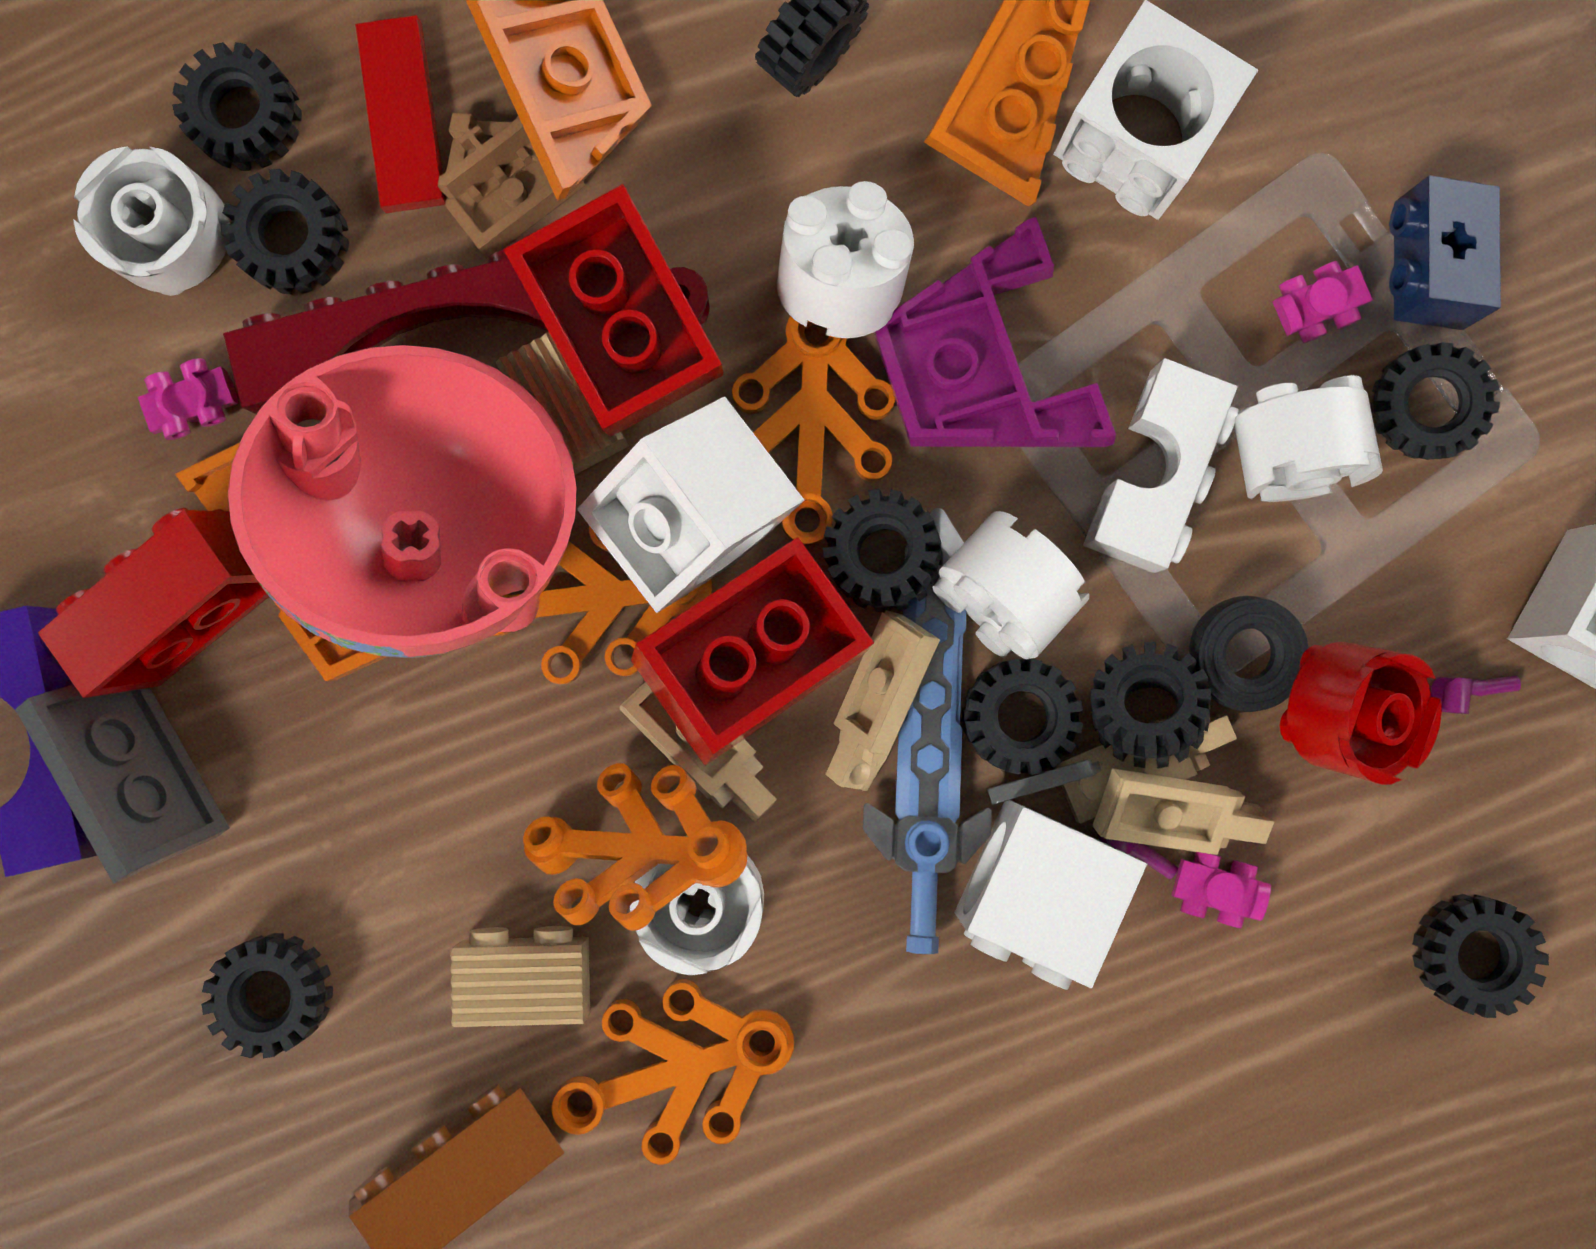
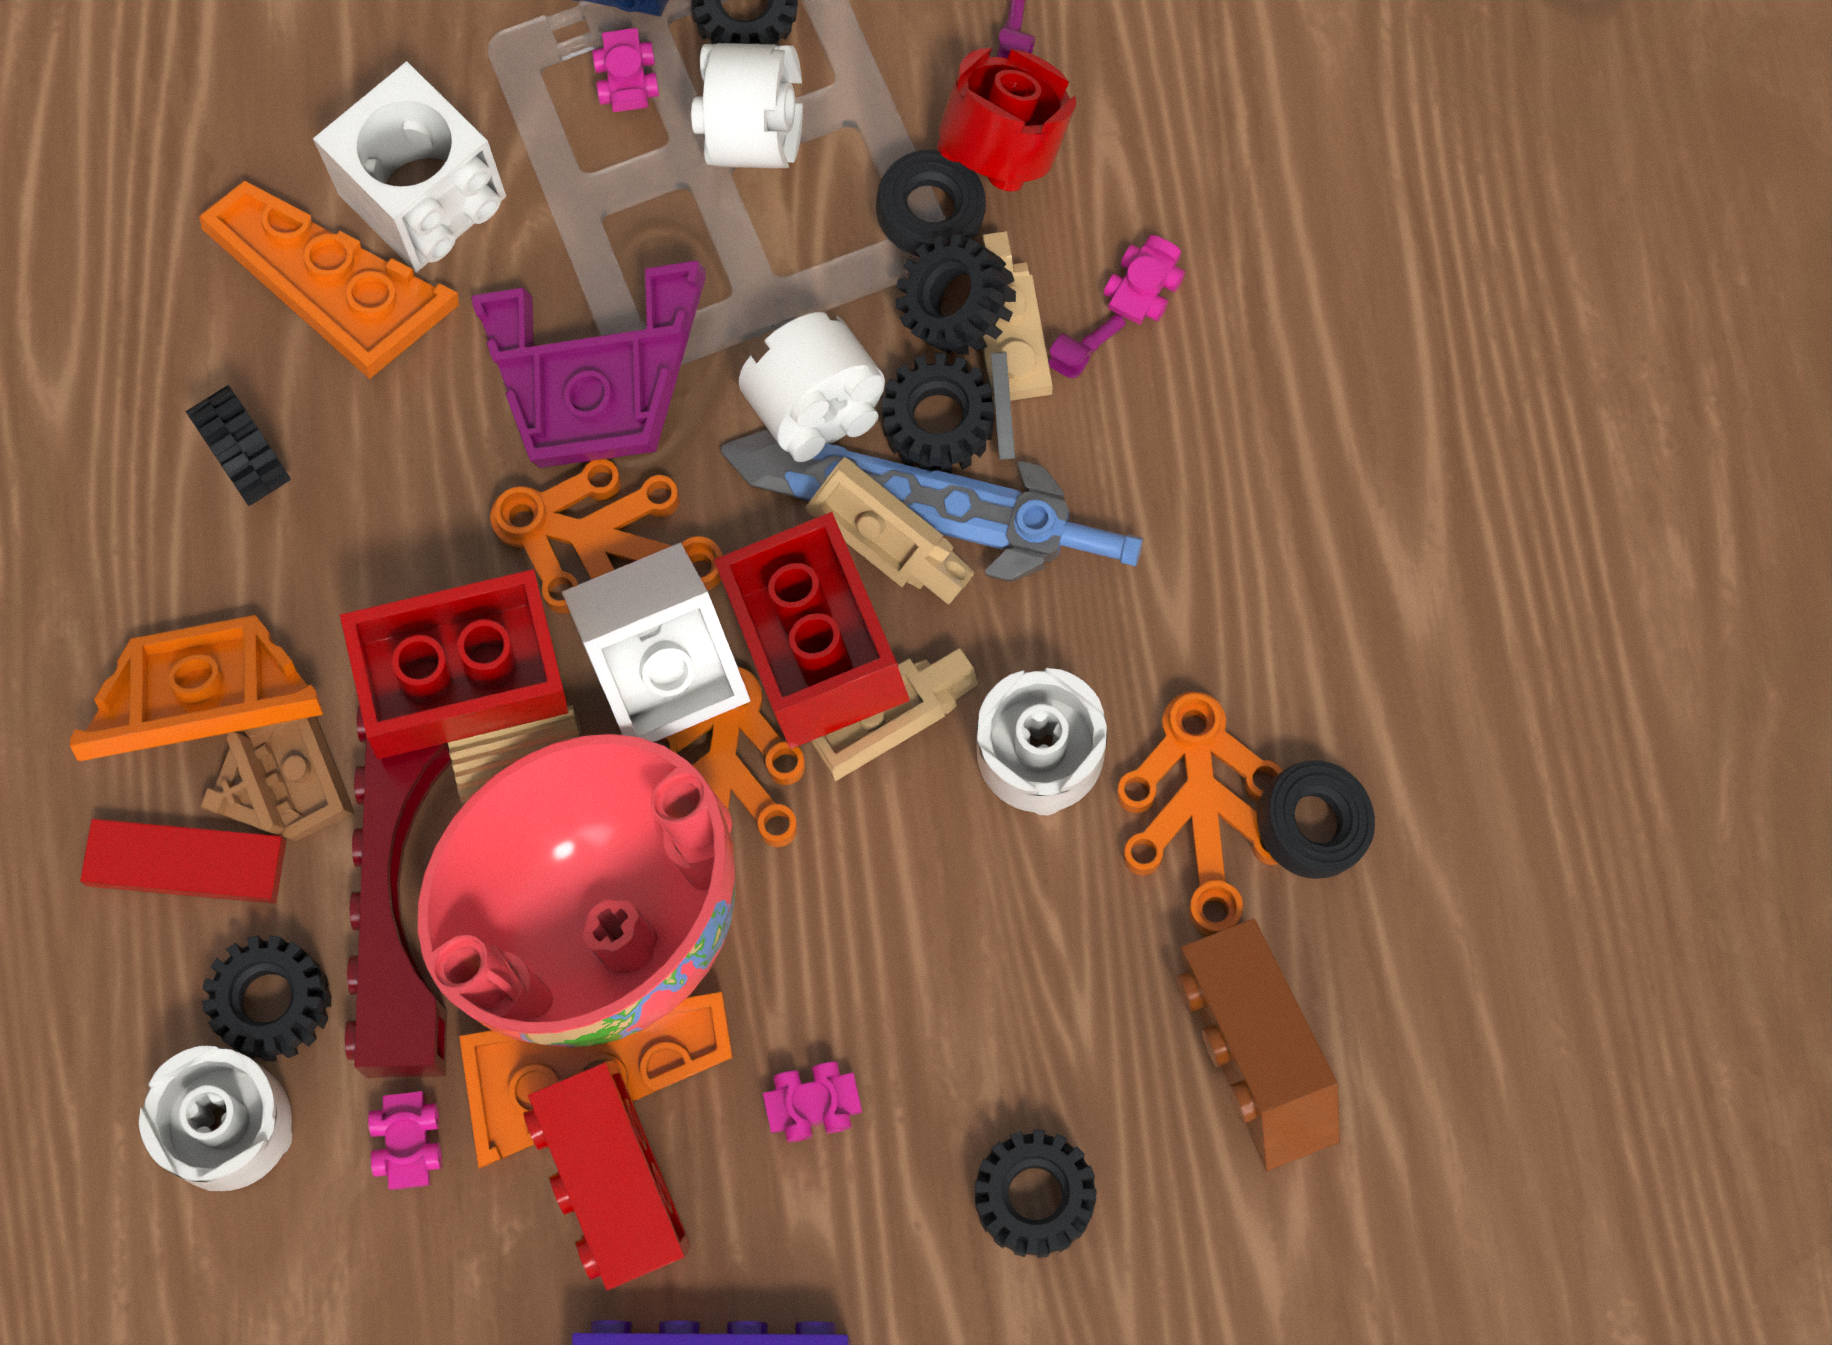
camera: 75 degrees left, 15 degrees down
(123, 776) = (769, 1272): dark grey plate -> none
(214, 80) = (93, 995): black tyre -> none
(312, 771) = (799, 1106): none -> dark pink piece
(520, 978) = (1077, 933): tan brick -> none
(694, 1221) = (1285, 840): none -> black tyre
(709, 856) = (974, 773): orange plant -> none
(844, 259) = (463, 463): white brick -> none
(876, 514) = (729, 467): black tyre -> none
(1047, 896) = (1105, 419): white brick -> none
(1177, 813) = (1061, 296): tan hinge -> none
(1186, 418) = (701, 204): white arch -> none
(1515, 964) = (1262, 47): black tyre -> none

